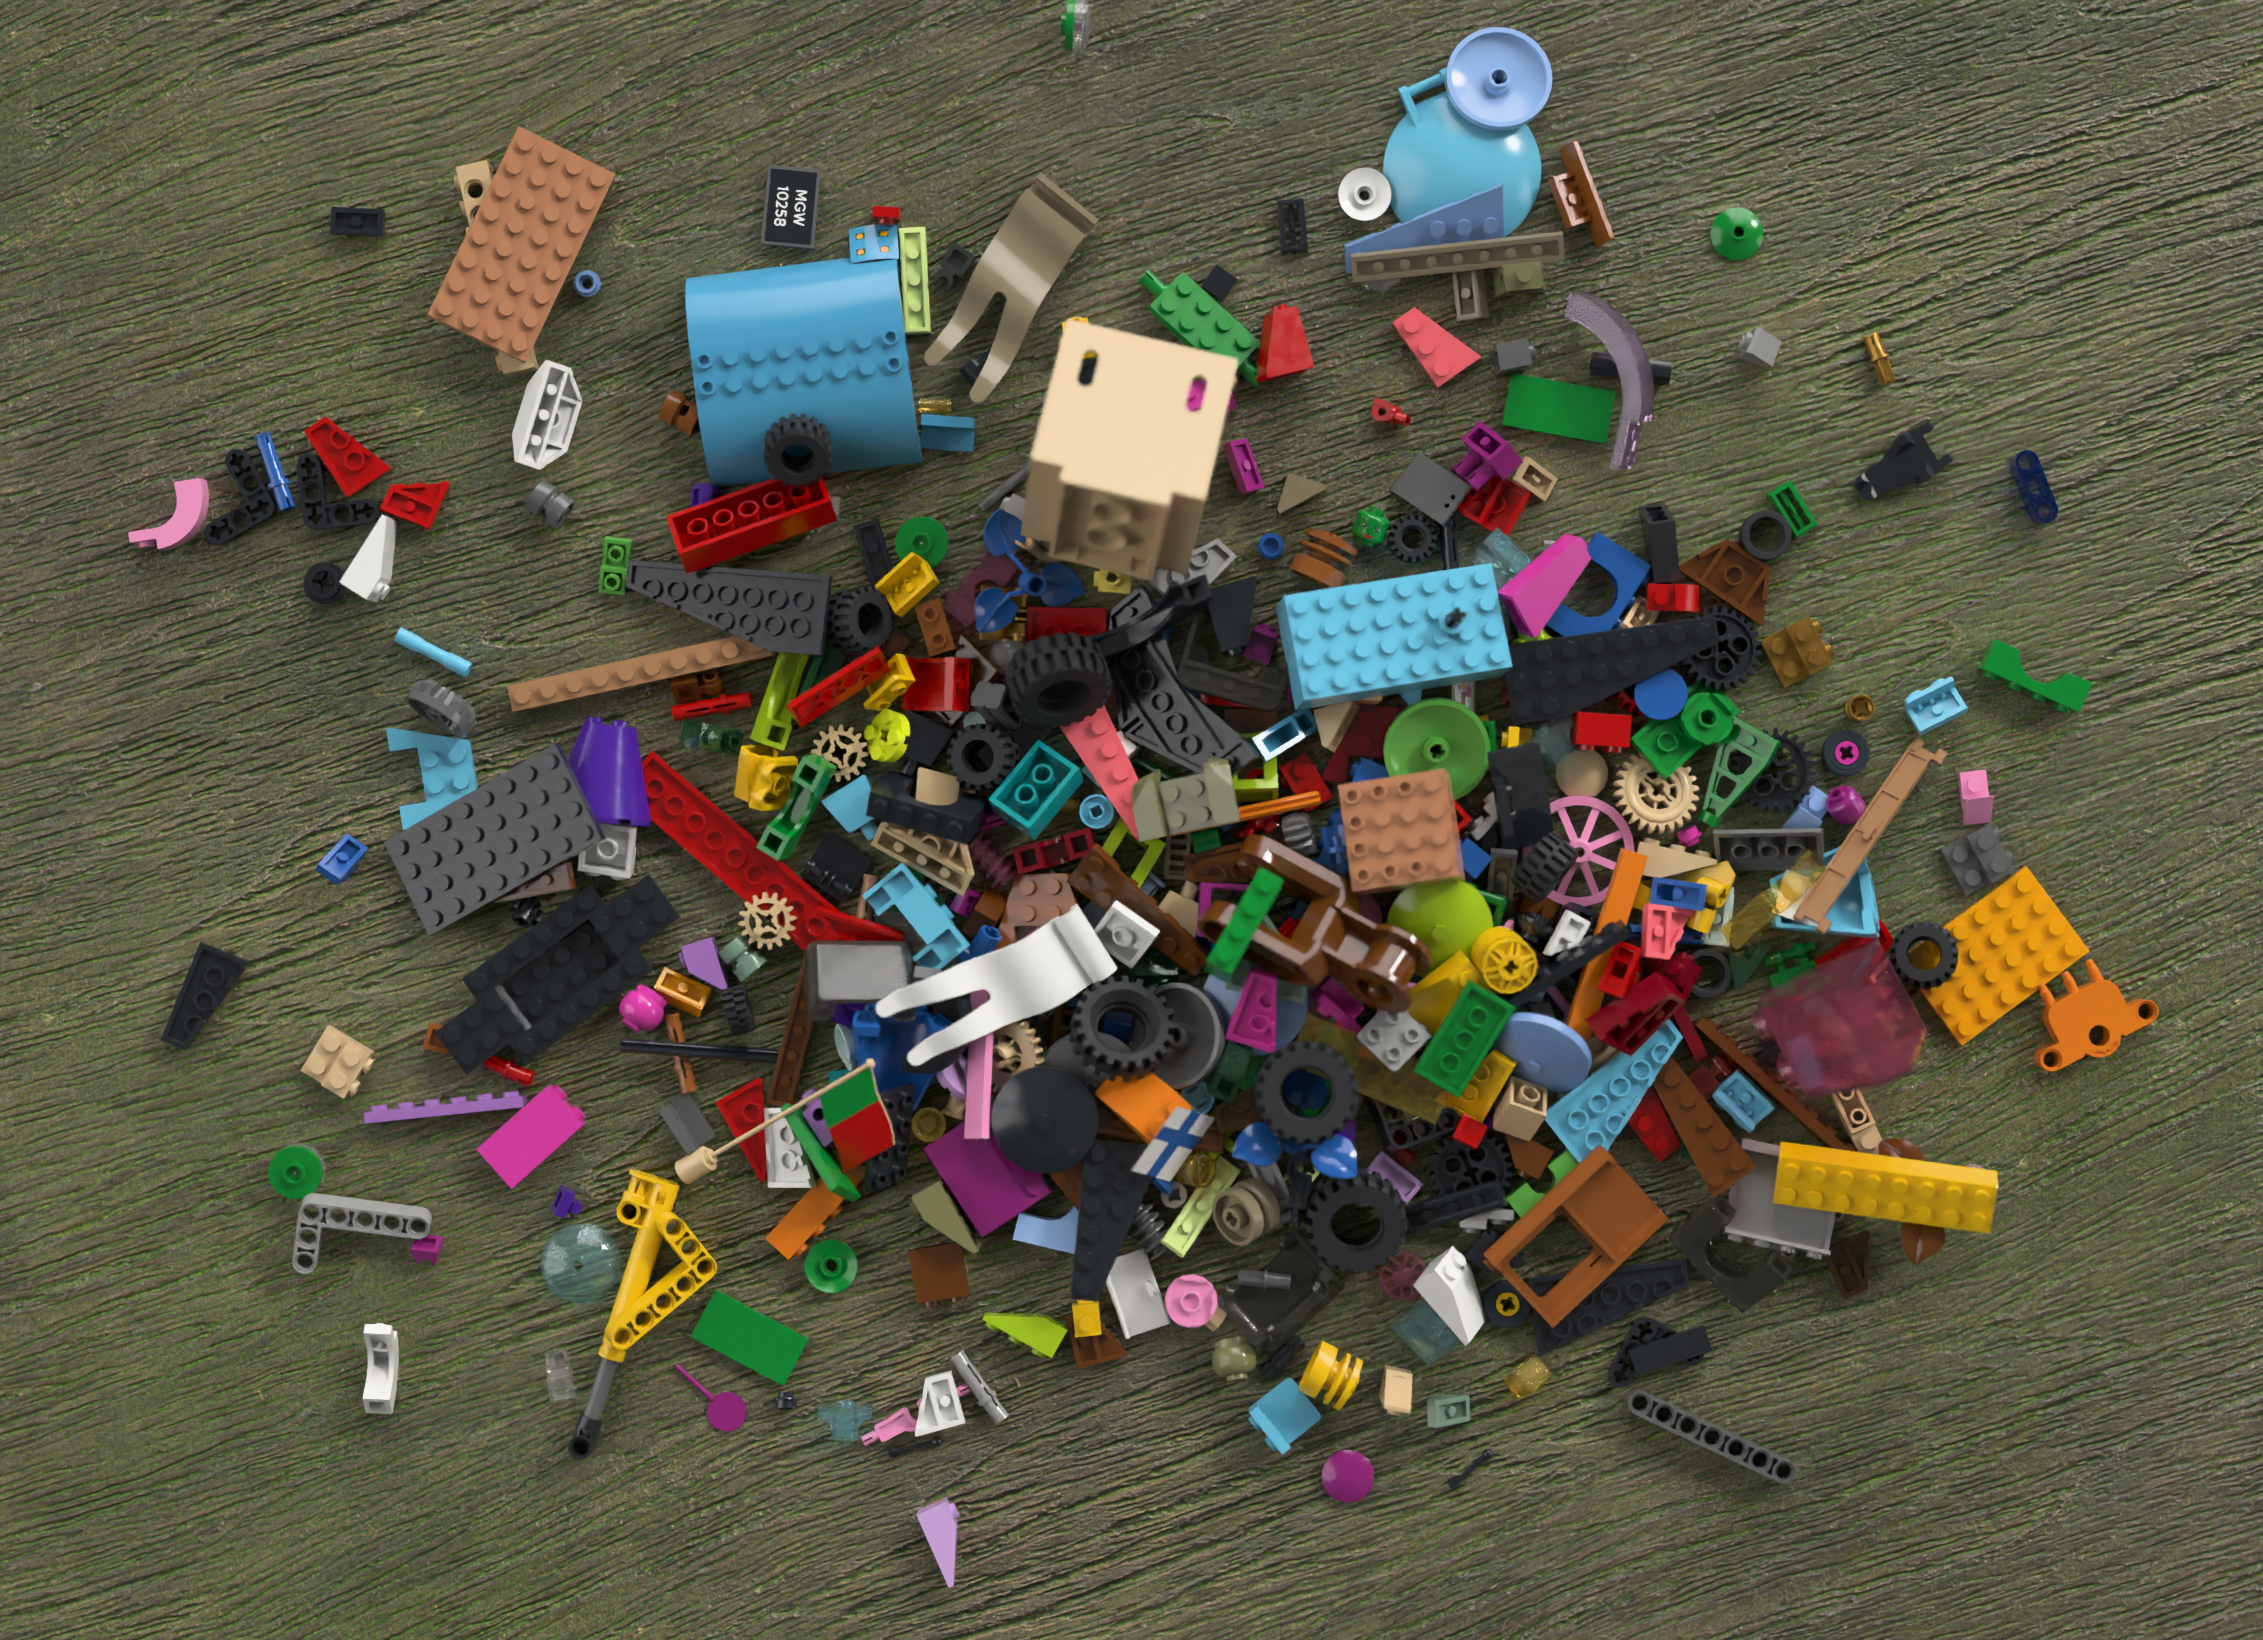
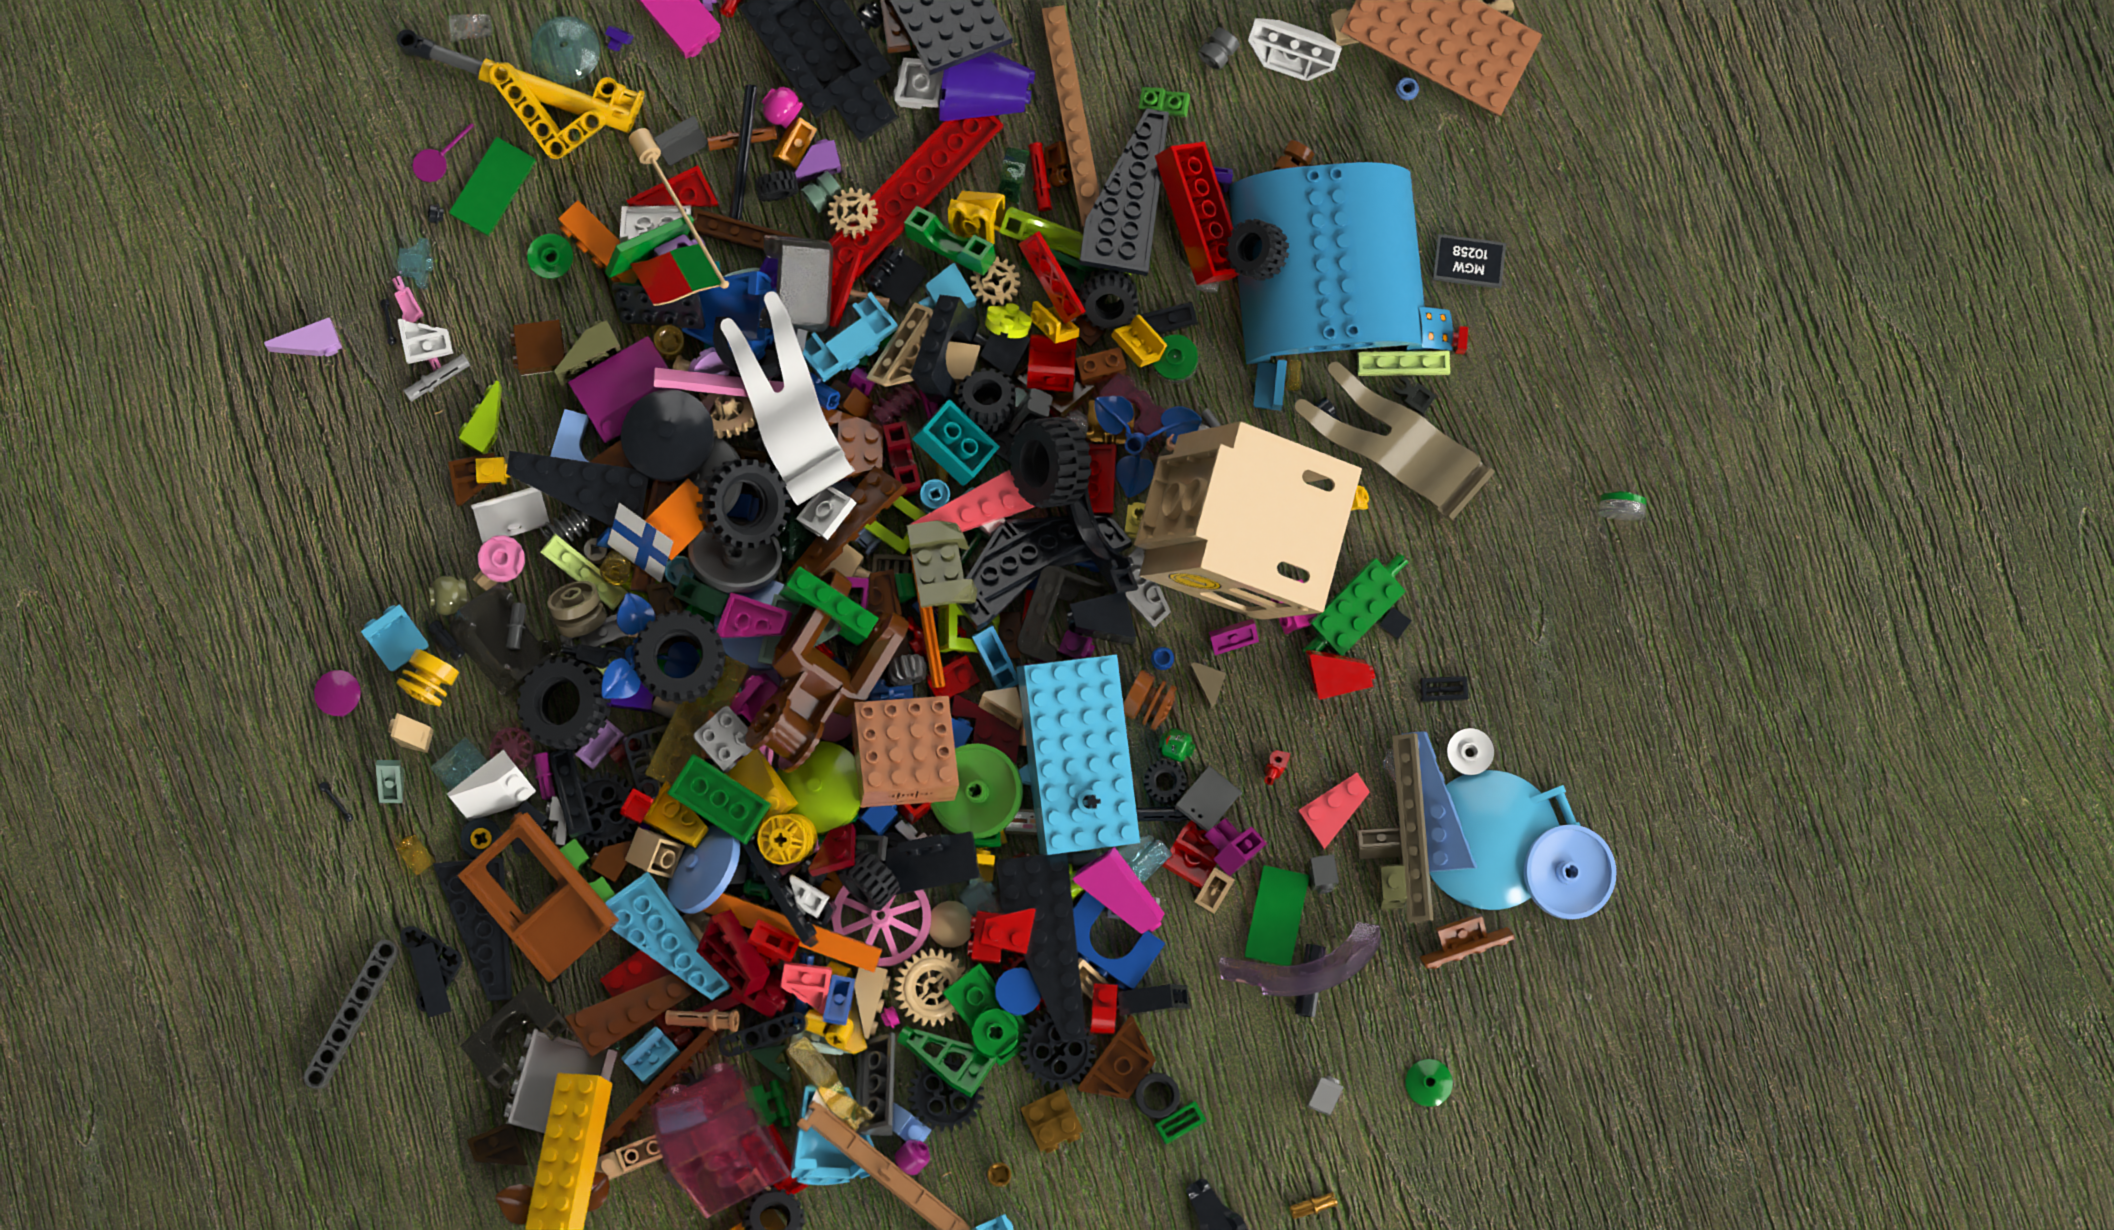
camera: 85 degrees right, 10 degrees down
(1434, 1237) = (544, 776): none -> magenta axle
(1516, 904) = (836, 851): none -> dark red wing
(1556, 993) = (756, 888): none -> dark green bush
(1598, 706) = (1009, 931): none -> red wing
(1709, 1032) = (714, 1019): none -> medium nougat pin
(1714, 978) = (763, 1034): none -> black beam
(1832, 756) = (959, 1174): black bush -> none

